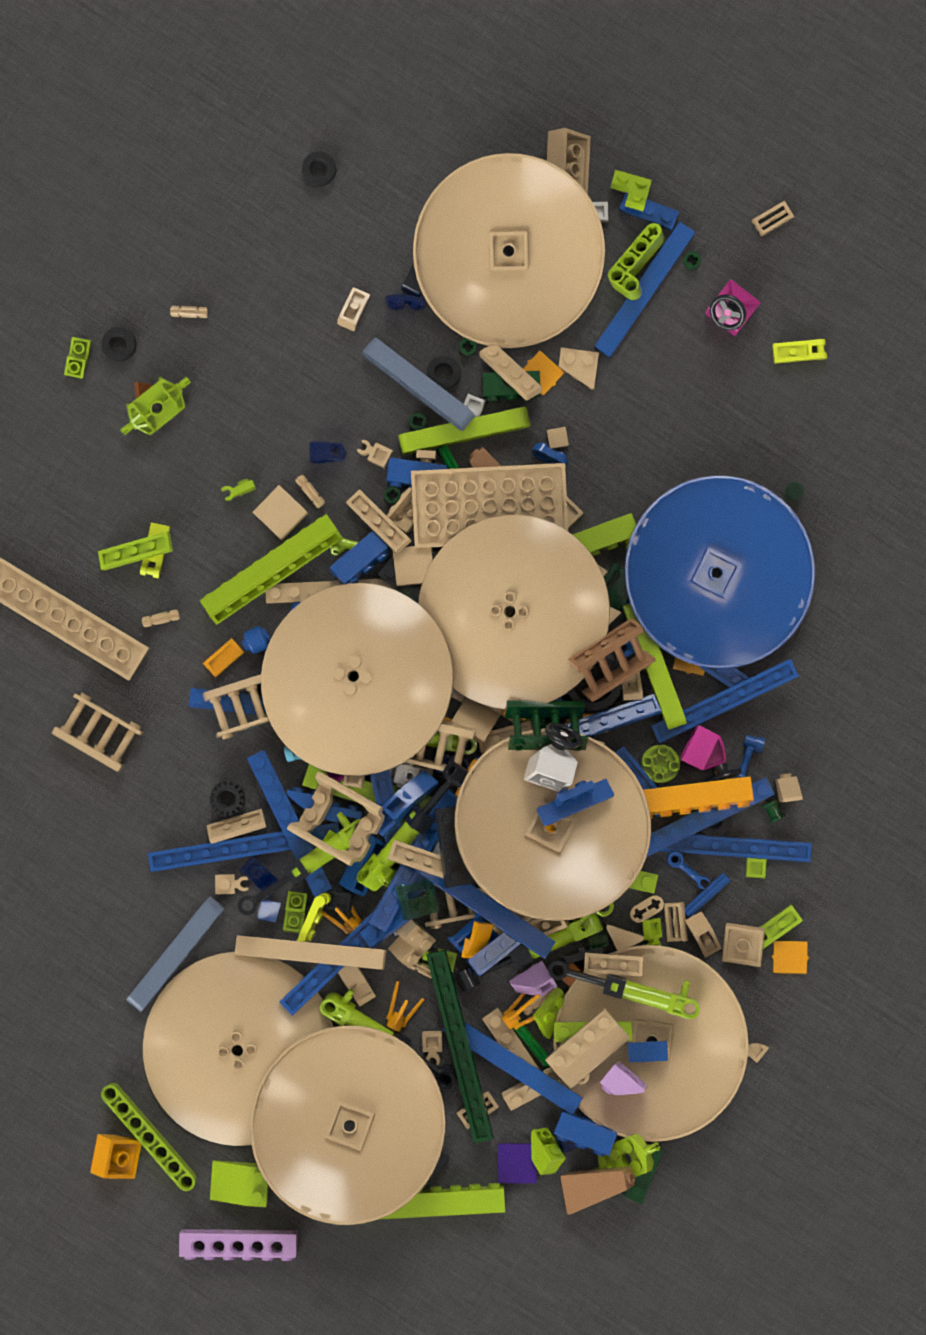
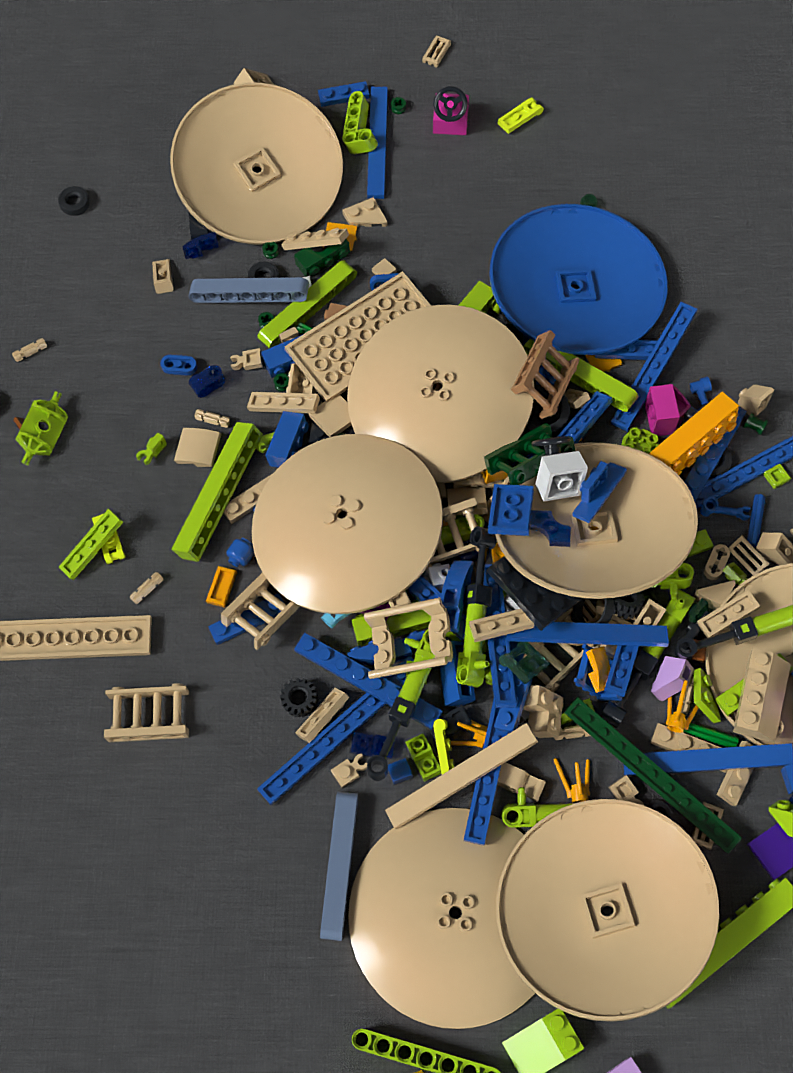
camera: 30 degrees left, 20 degrees down
(312, 417) = (179, 364): none -> blue plate
(490, 771) = (511, 510): none -> blue tile
(509, 801) = (556, 533): none -> clear blue tile
(635, 186) = (325, 82): lime plate -> none

